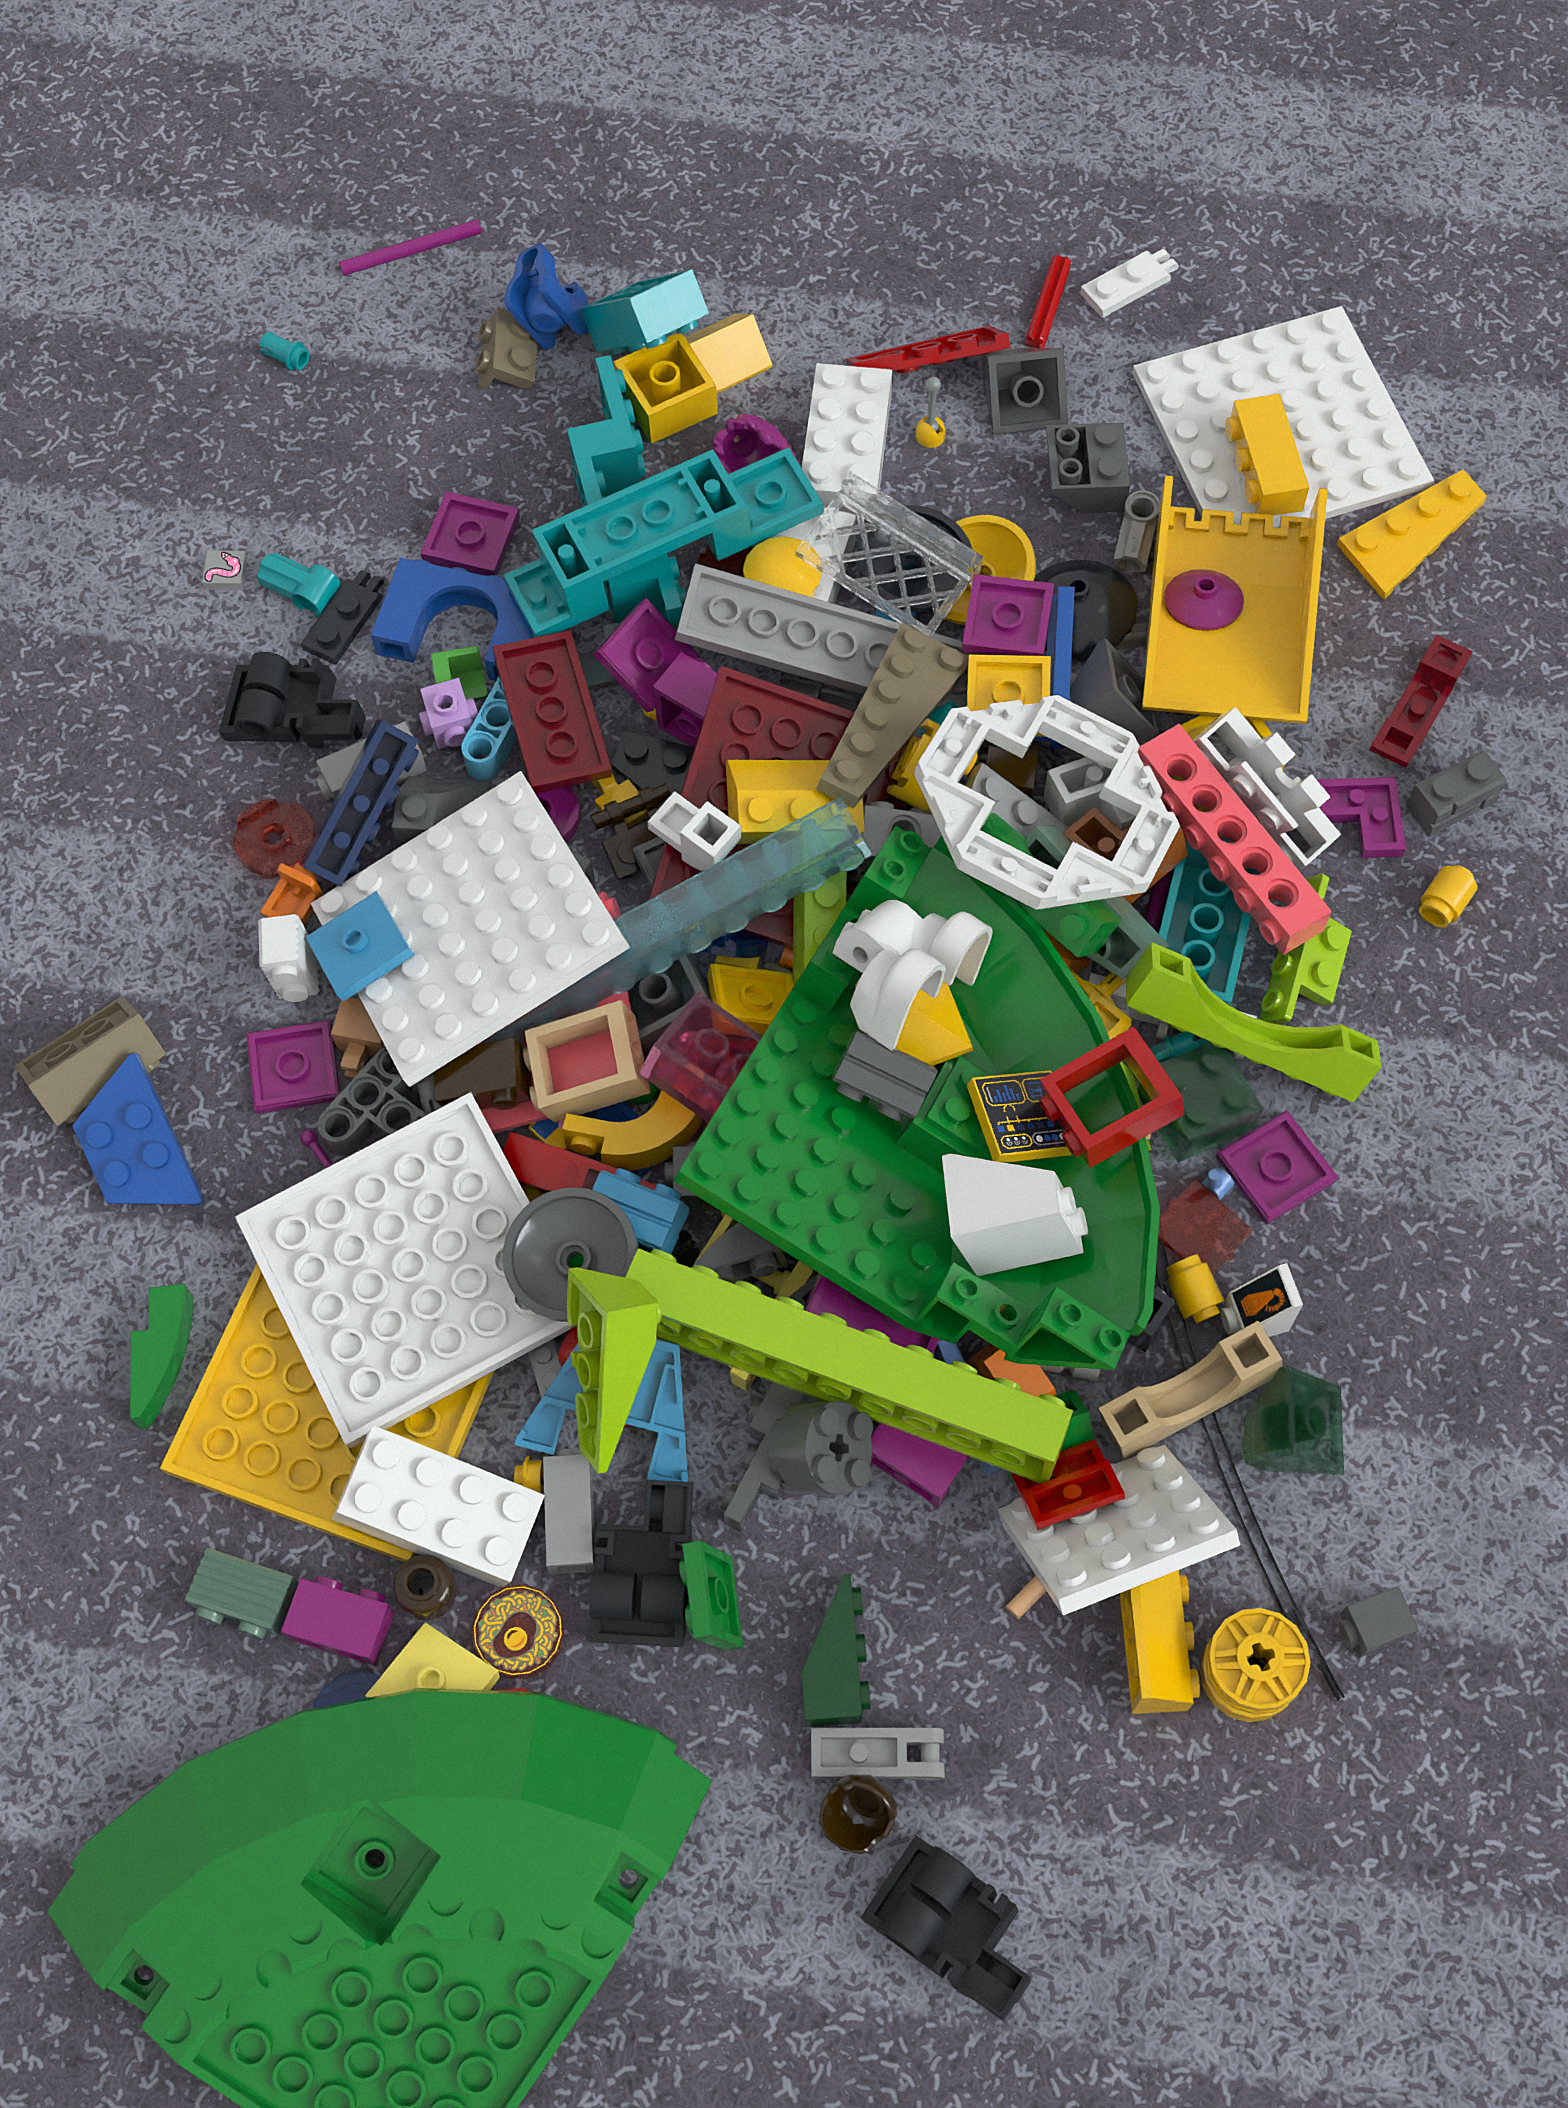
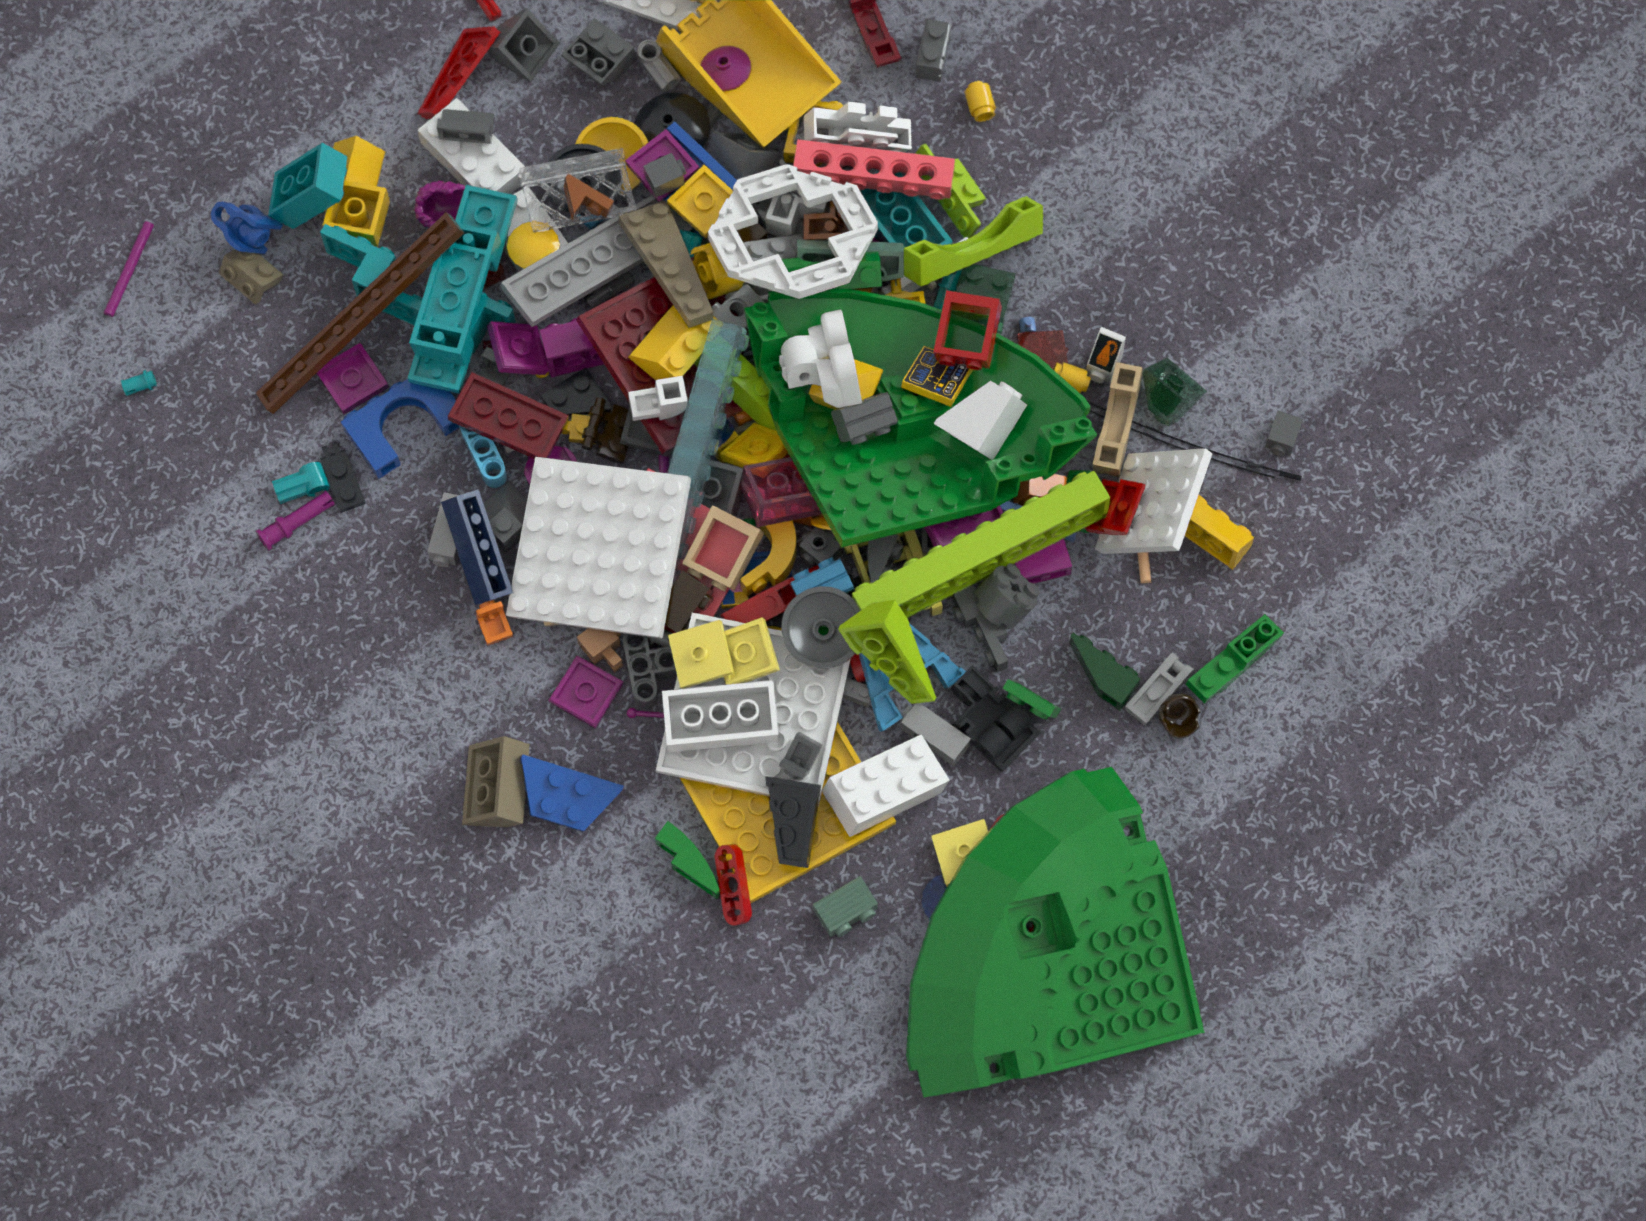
camera: 50 degrees left, 5 degrees up
(178, 1412) = (726, 894): none -> red beam
(224, 570) = (254, 514): light grey tile -> none
(232, 606) = (284, 526): none -> magenta pin
(259, 821) = (437, 595): clear red plate -> none
(284, 700) = (372, 543): black plate -> none
(287, 957) = (531, 646): white brick -> none
(303, 1429) = (794, 817): none -> black wing
(338, 1620) = (897, 873): magenta brick -> none
(351, 1229) = (720, 716): none -> white brick
(359, 946) = (564, 605): dark azure plate -> none
(380, 1369) = (800, 756): none -> dark grey bracket
(418, 1143) = (701, 654): none -> light yellow plate
(431, 1577) = (908, 822): dark brown head -> none
(447, 713) = (456, 469): lavender brick -> none
(461, 664) = (434, 448): bright green panel -> none
(464, 1193) = (750, 652): none -> light yellow plate
(518, 1631) = (969, 799): tile -> none
(530, 1474) = (899, 736): yellow plate -> none
(539, 465) = (359, 312): none -> reddish brown plate
(861, 397) = (466, 126): none -> dark grey panel
(878, 559) = (581, 194): none -> dark orange slope
(926, 428) = (501, 112): hinge -> none
(949, 1920) = (1255, 714): black plate -> none
(991, 621) = (664, 174): none -> dark grey brick
(1003, 1822) = (1235, 659): none -> green slope
(1244, 1689) = (1256, 512): yellow wheel -> none
(1276, 1167) = (1042, 293): magenta tile -> none
(1375, 809) = (907, 92): magenta plate -> none

